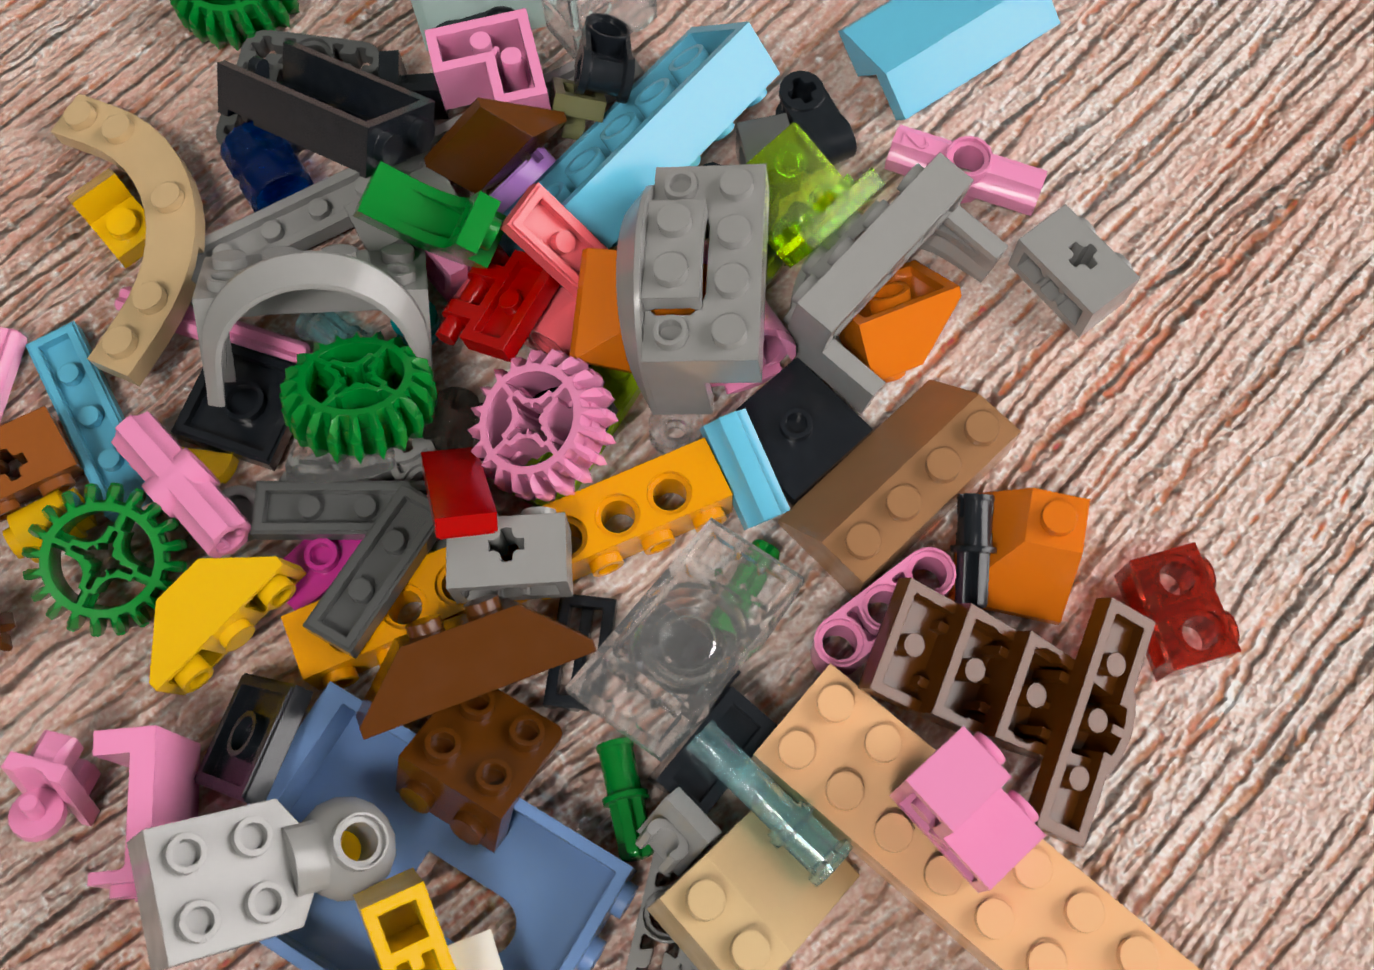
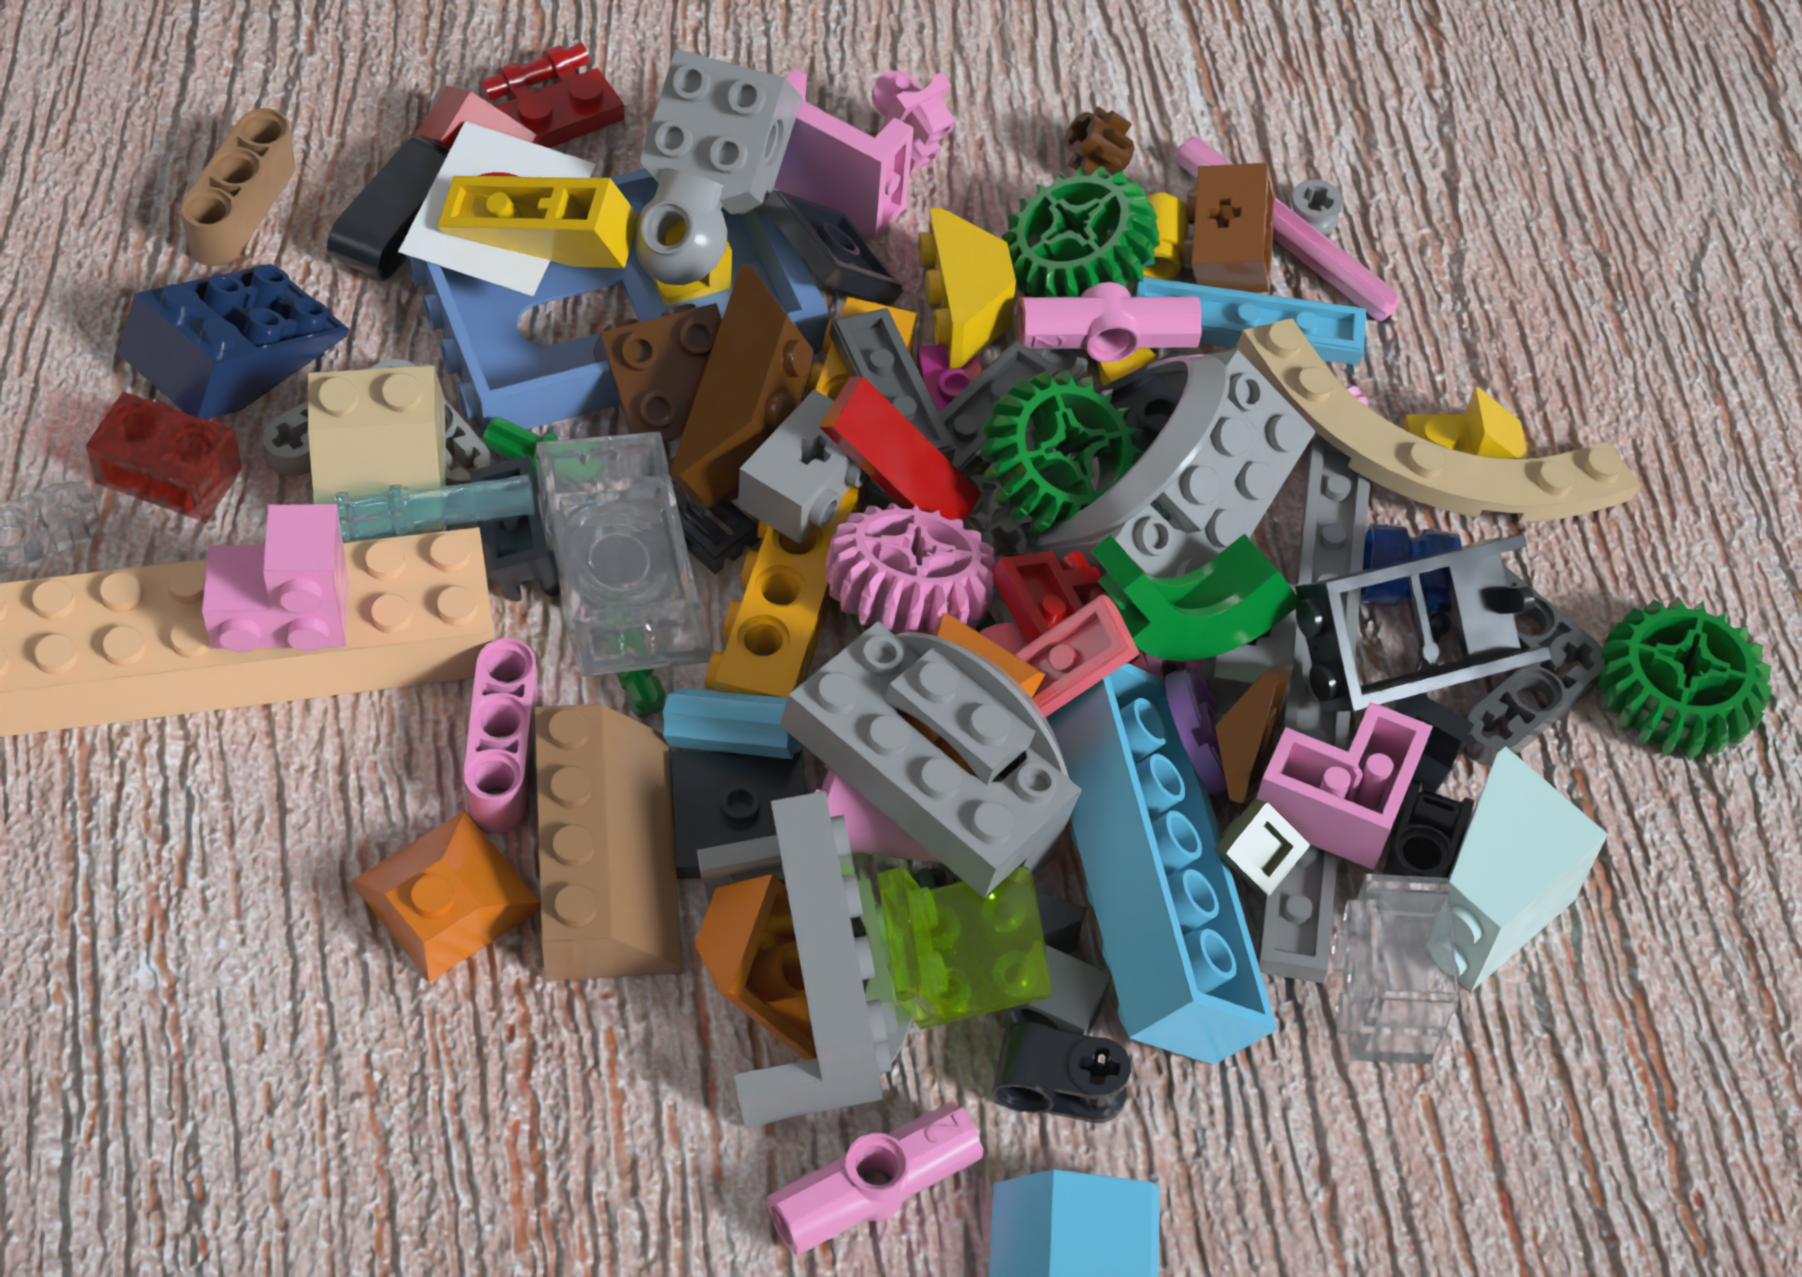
camera: 120 degrees right, 15 degrees down
(605, 58) = (1269, 874): black piece -> none
(677, 832) = (475, 444): light grey tile -> none
(973, 547) = (480, 826): black axle -> none
(1018, 691) = (330, 756): reddish brown slope -> none
(1073, 270) = (636, 1156): light grey brick -> none
(1194, 608) = (270, 950): clear red brick -> none

